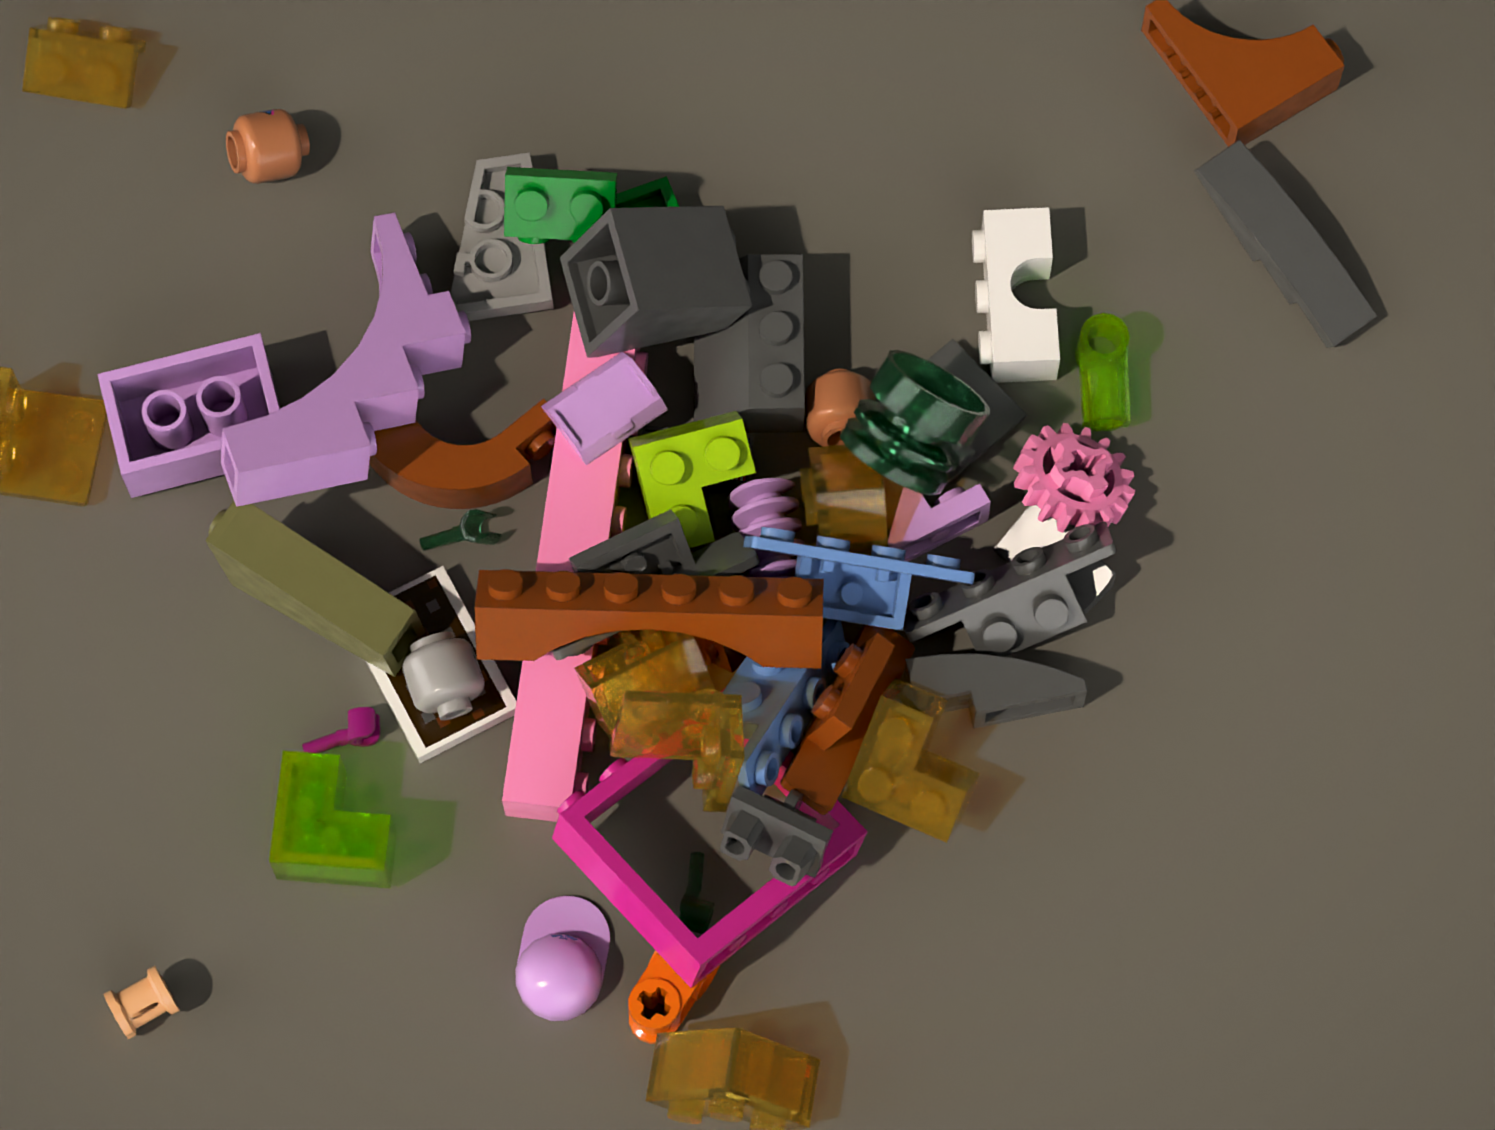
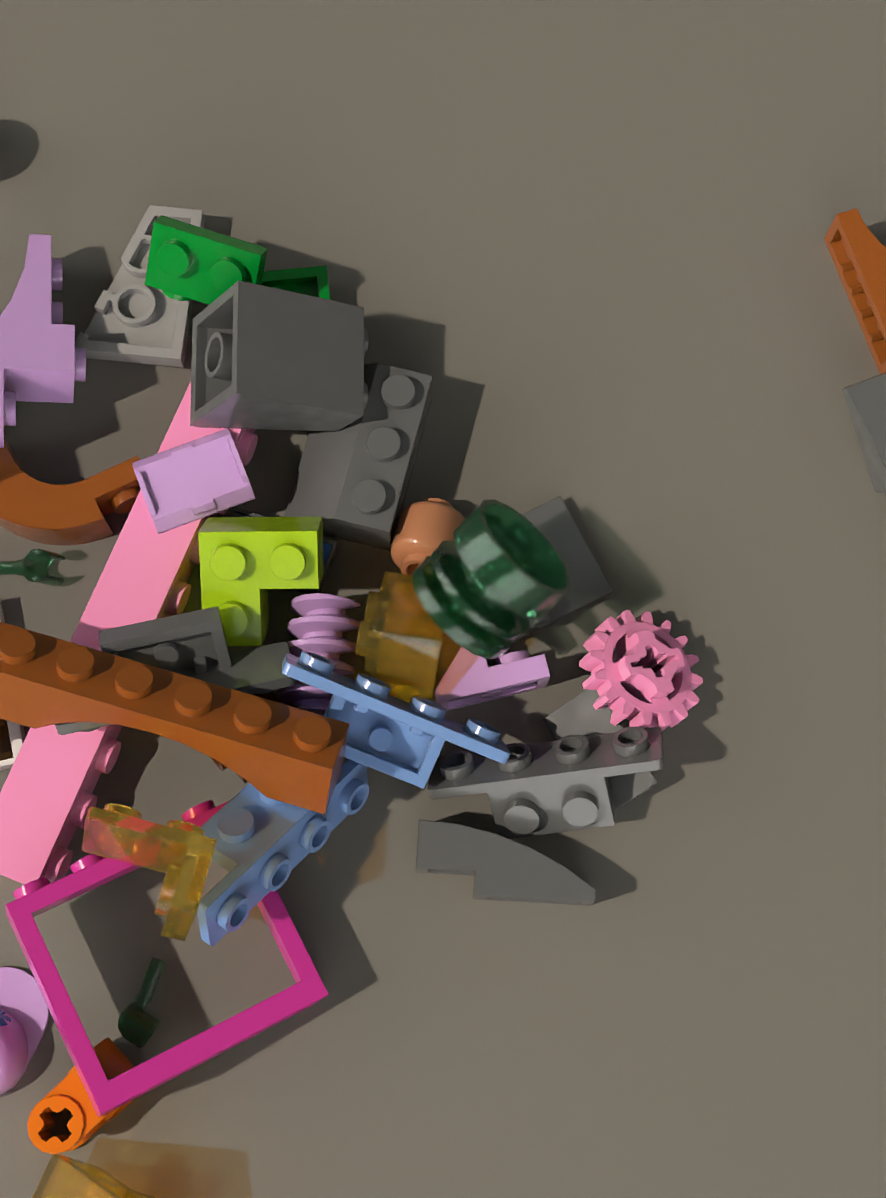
camera: 10 degrees right, 5 degrees up
(641, 661) = (144, 773): clear yellow brick -> none
(776, 830) = (230, 979): dark grey hips -> none
(844, 715) = (339, 868): dark orange bracket -> none
(900, 775) = (382, 941): clear yellow brick -> none
(1018, 340) = (643, 422): white arch -> none
(1104, 376) = (698, 573): clear neon green piece -> none

